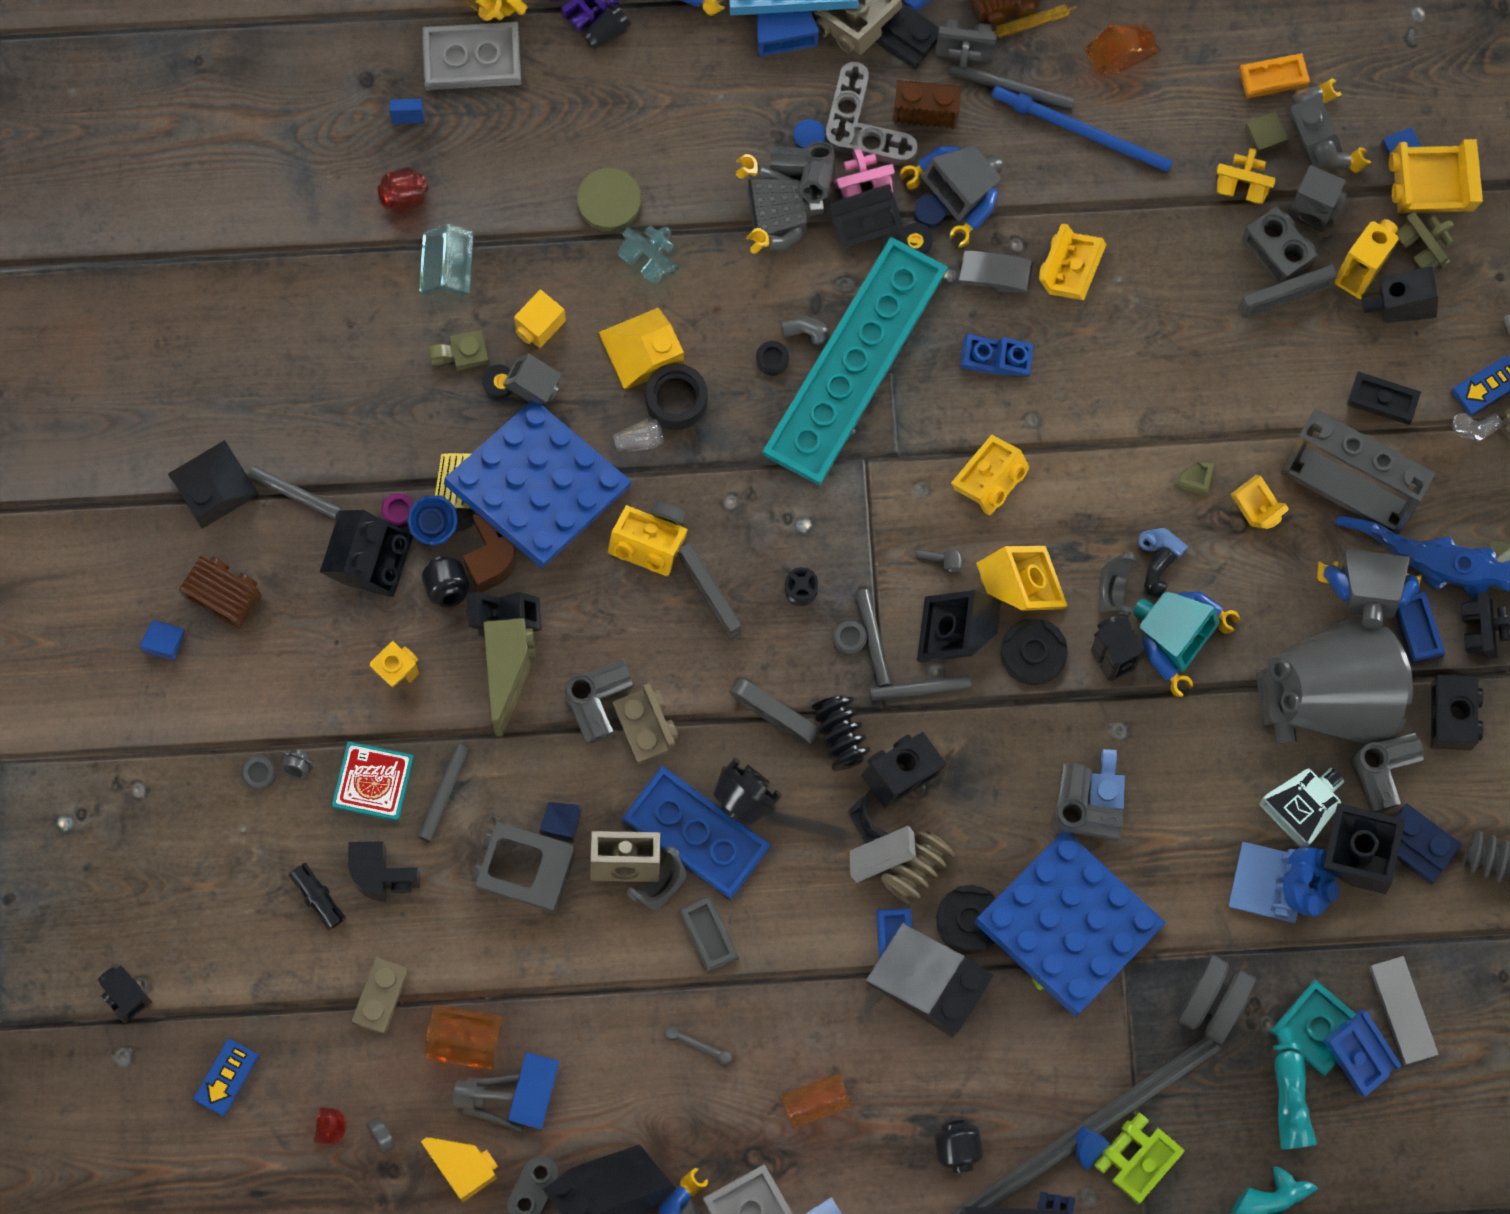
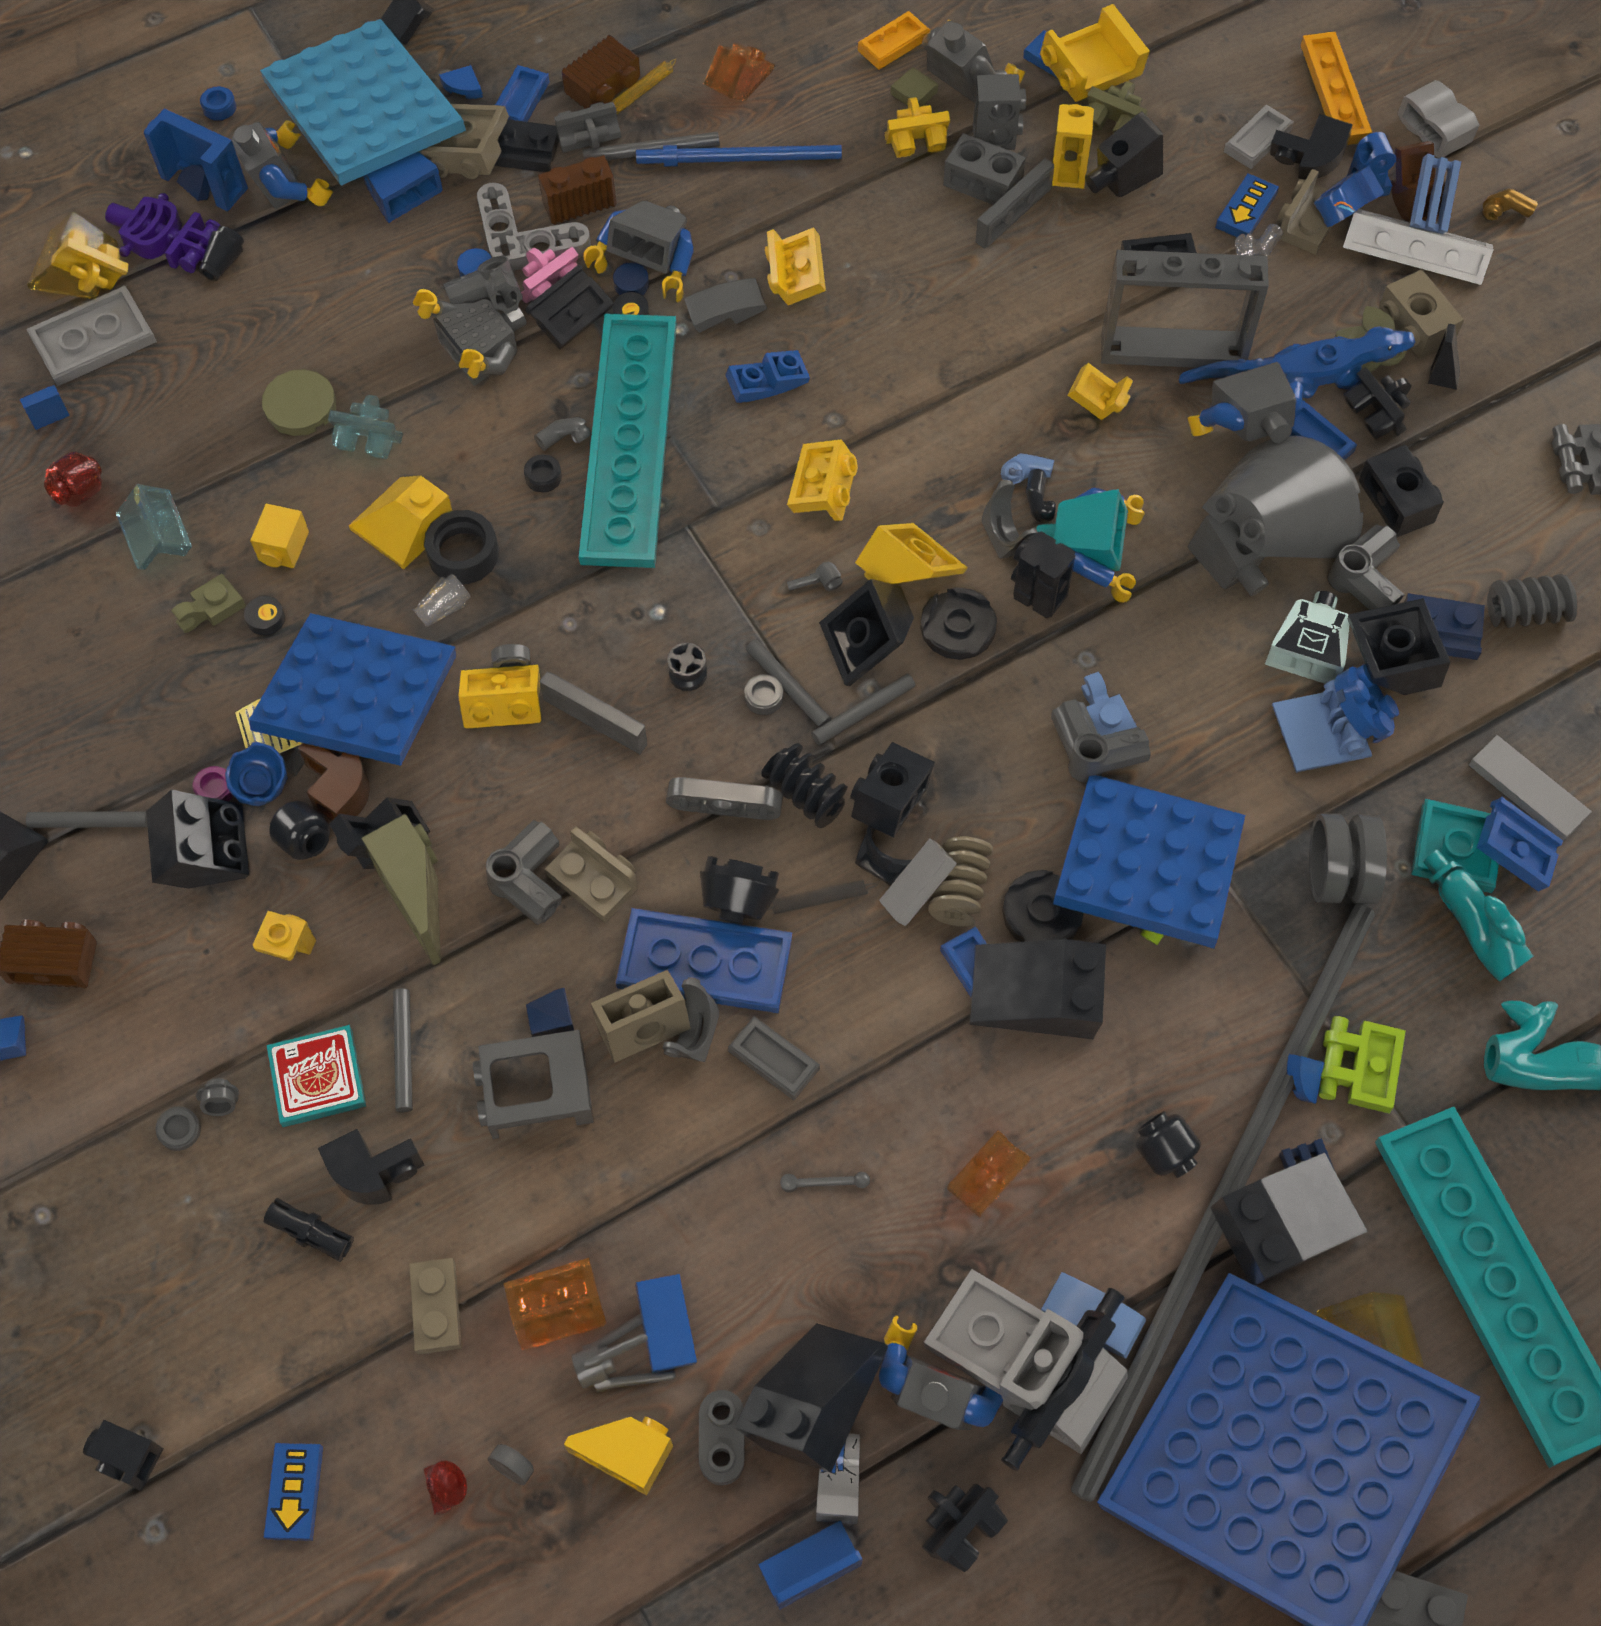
camera: 25 degrees left, 10 degrees down
(532, 379) = (300, 593): dark grey brick -> none
(1196, 478) = (1025, 399): olive tile -> none

